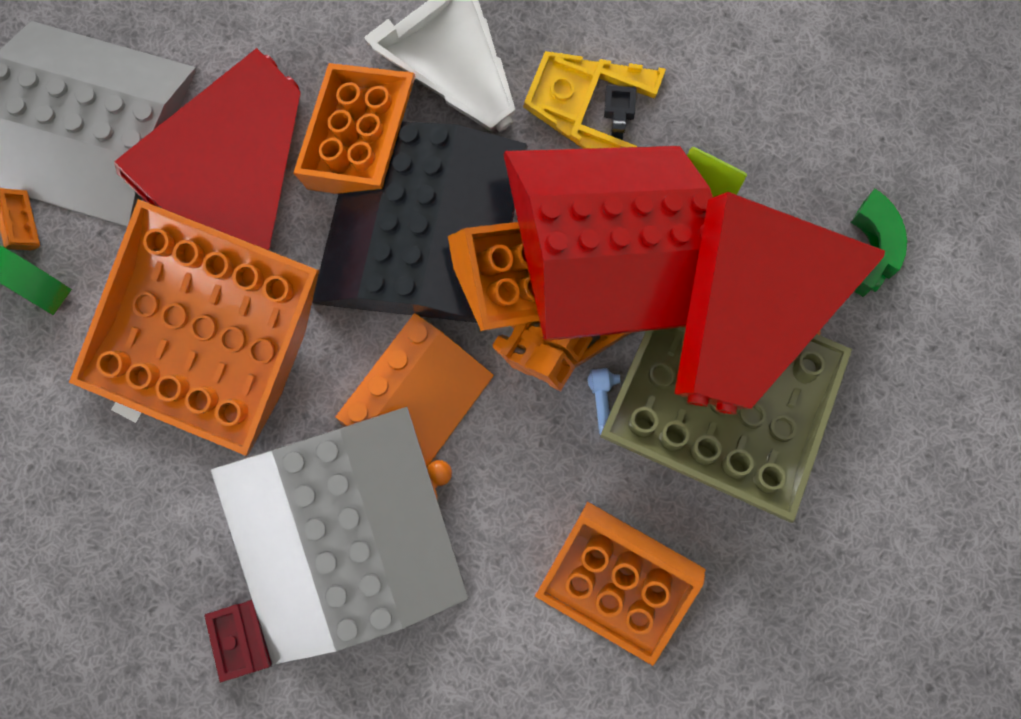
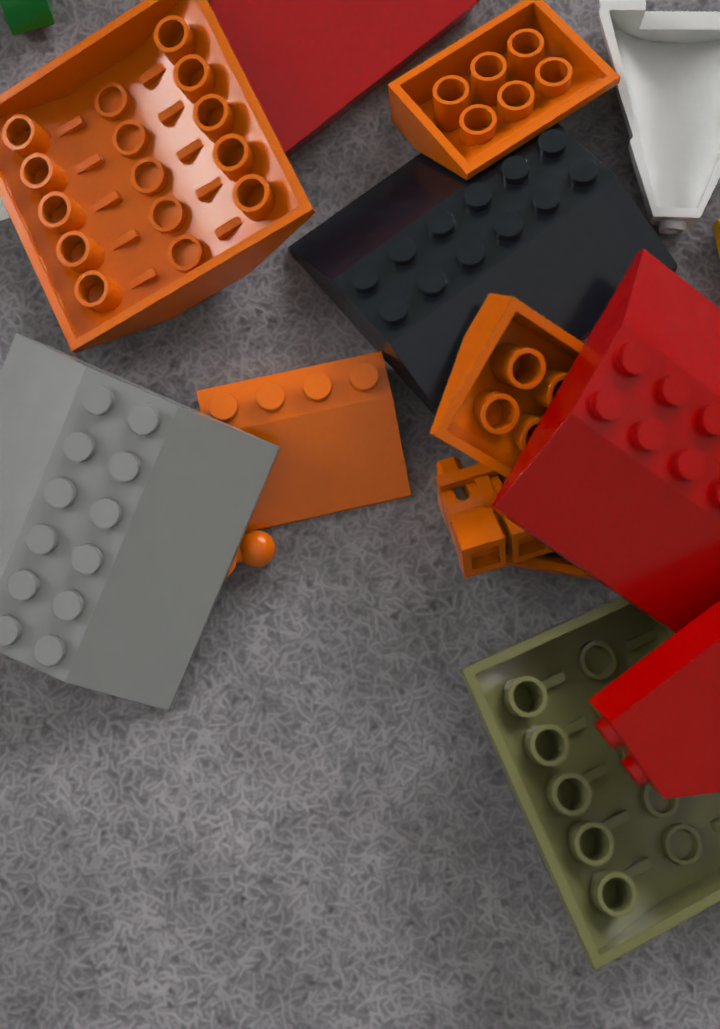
camera: 40 degrees right, 5 degrees up
(601, 383) = (520, 607): light blue piece -> none
(621, 583) = (345, 849): orange slope -> none

